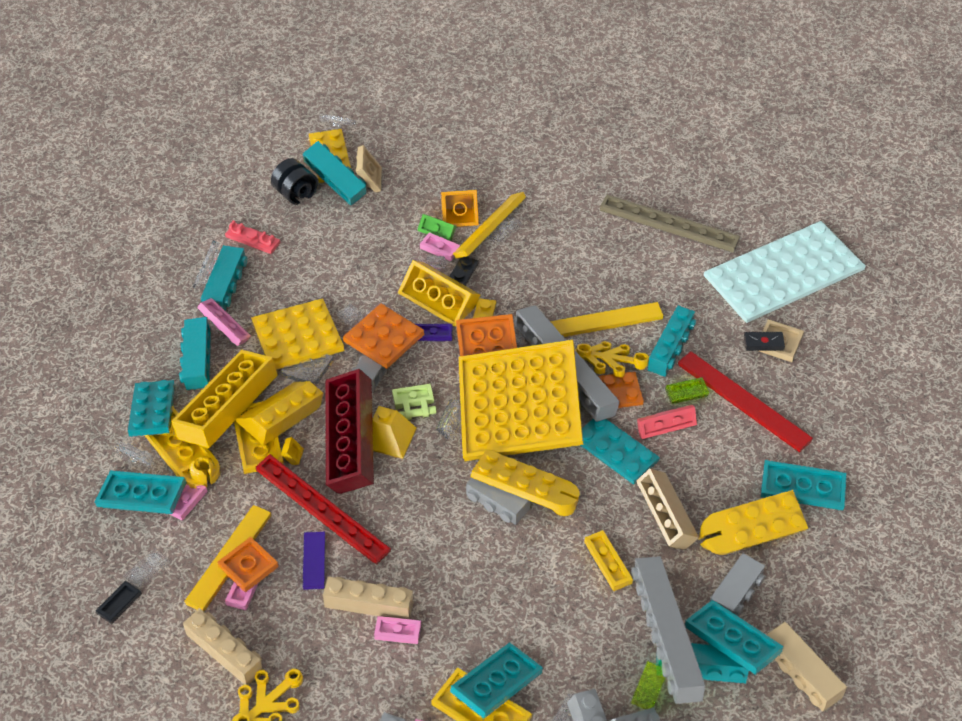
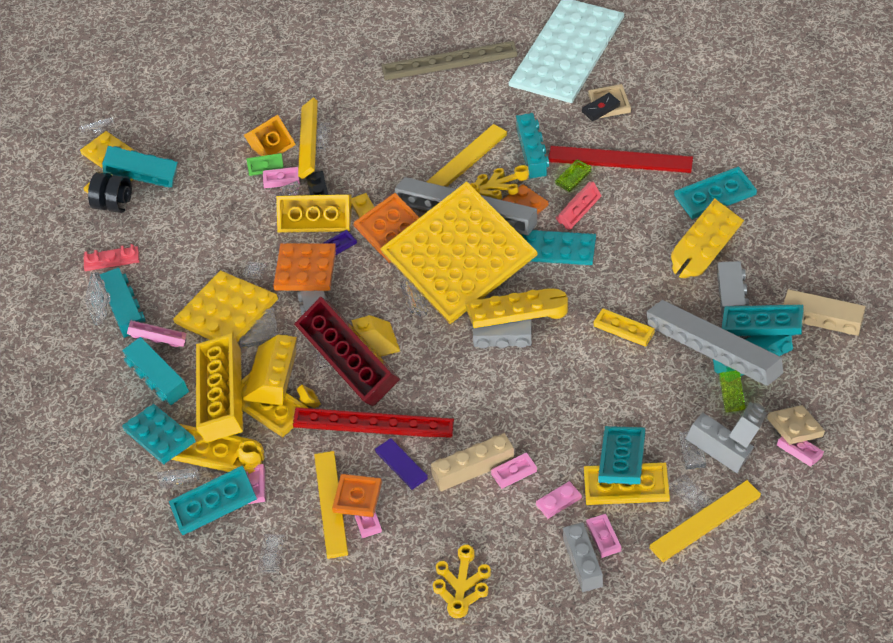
camera: 30 degrees left, 0 degrees up
(118, 602) = (272, 591): black tile -> none
(222, 646) = (392, 565): tan brick -> none
(368, 169) = (165, 148): tan plate -> none
(412, 683) = (558, 499): none -> bright pink plate
(414, 396) = (368, 299): yellowish green plate -> none
(667, 509) = (636, 265): tan brick -> none

